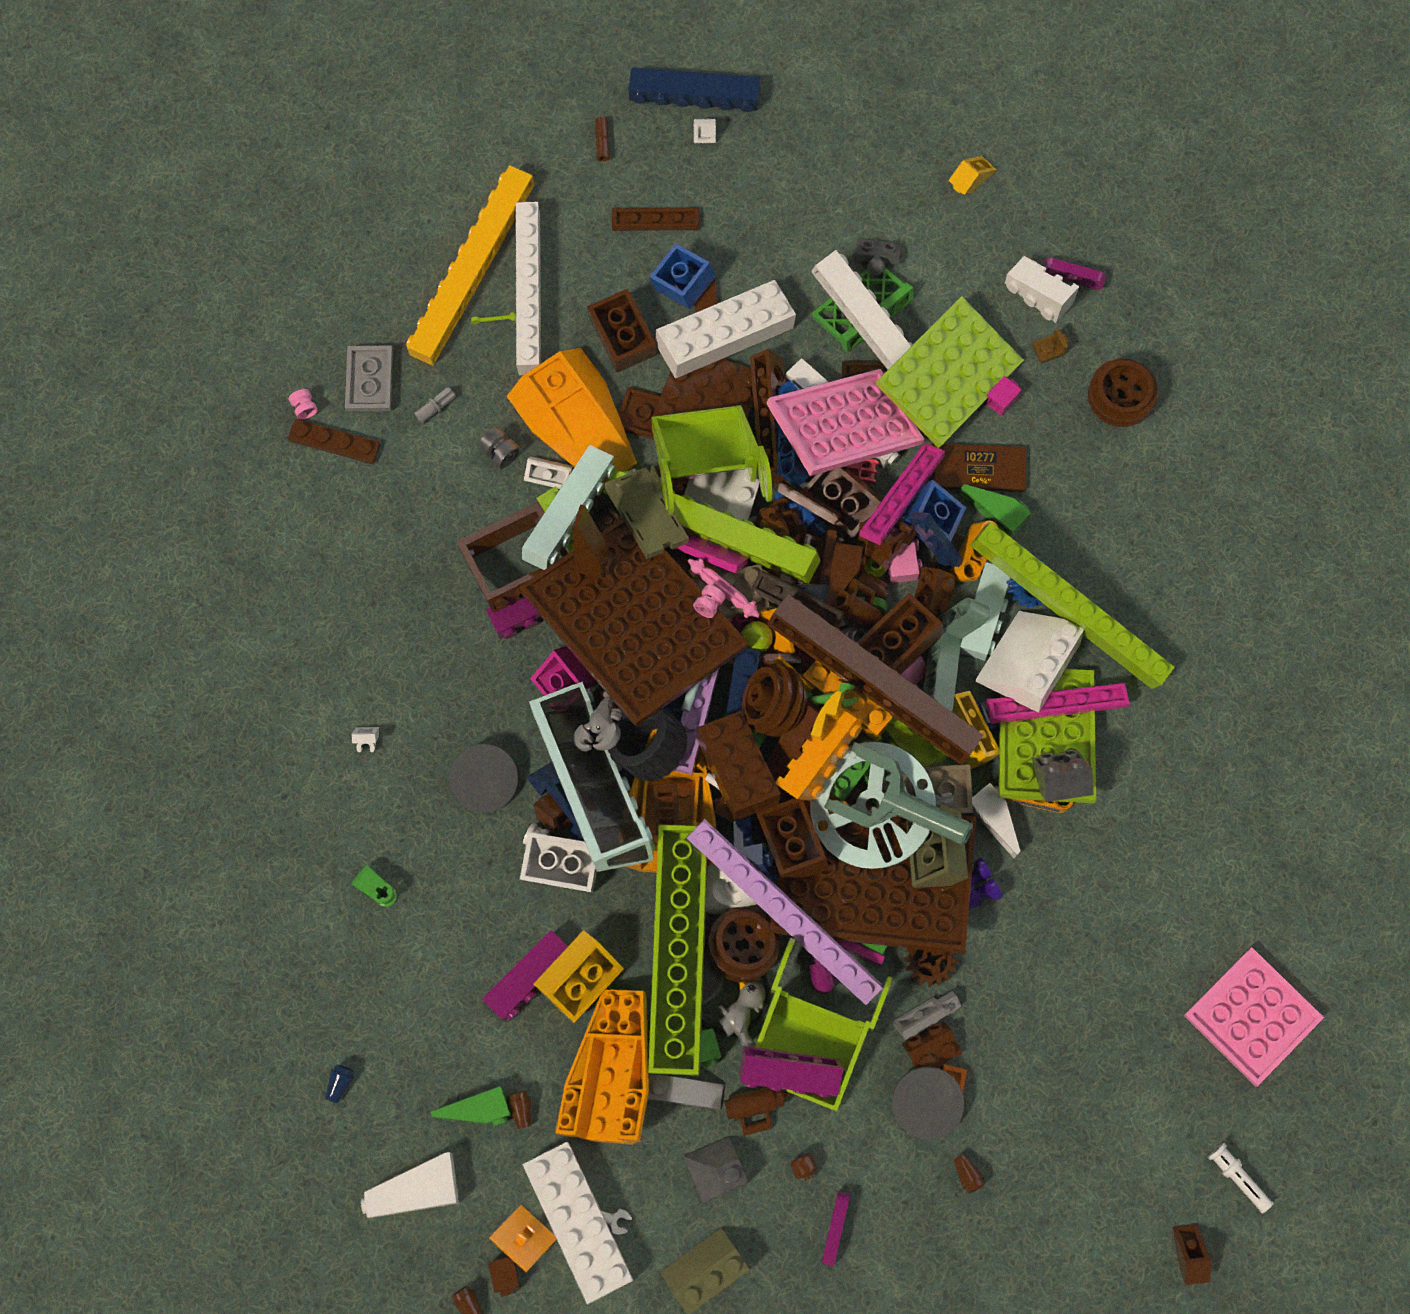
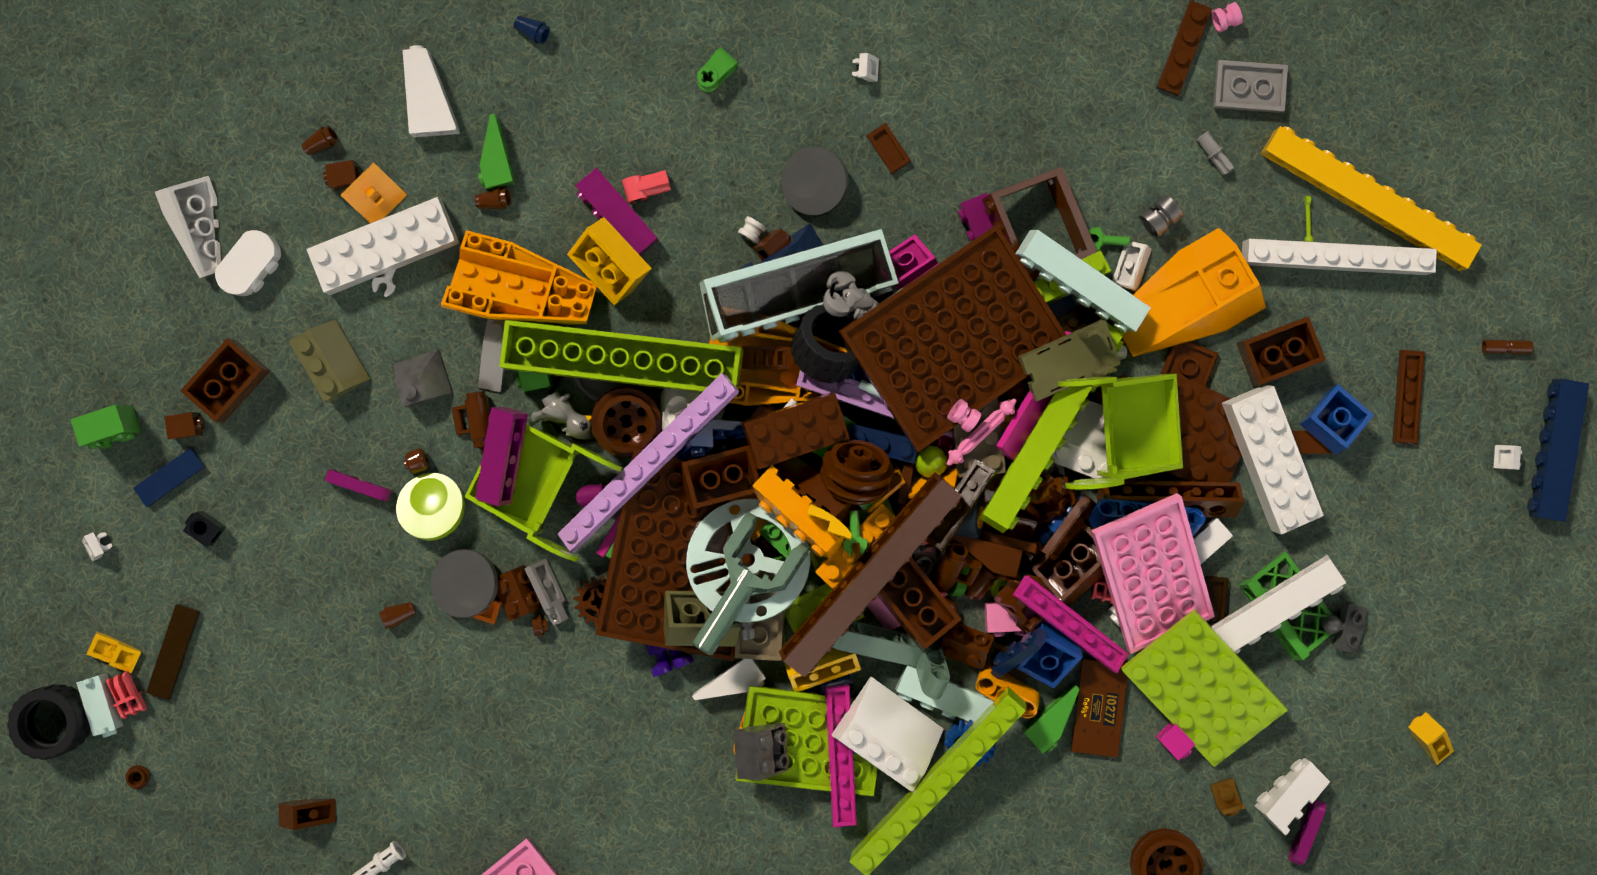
camera: 90 degrees right, 15 degrees up
(446, 710) = (888, 148): none -> reddish brown tile
(499, 953) = (642, 187): none -> coral piece
(525, 494) = (1108, 240): none -> bright green bar
(558, 862) = (720, 246): white slope -> none
(589, 546) = (1029, 297): reddish brown wedge -> none
(850, 1146) = (430, 506): none -> piece
(963, 1020) = (539, 626): none -> reddish brown plate

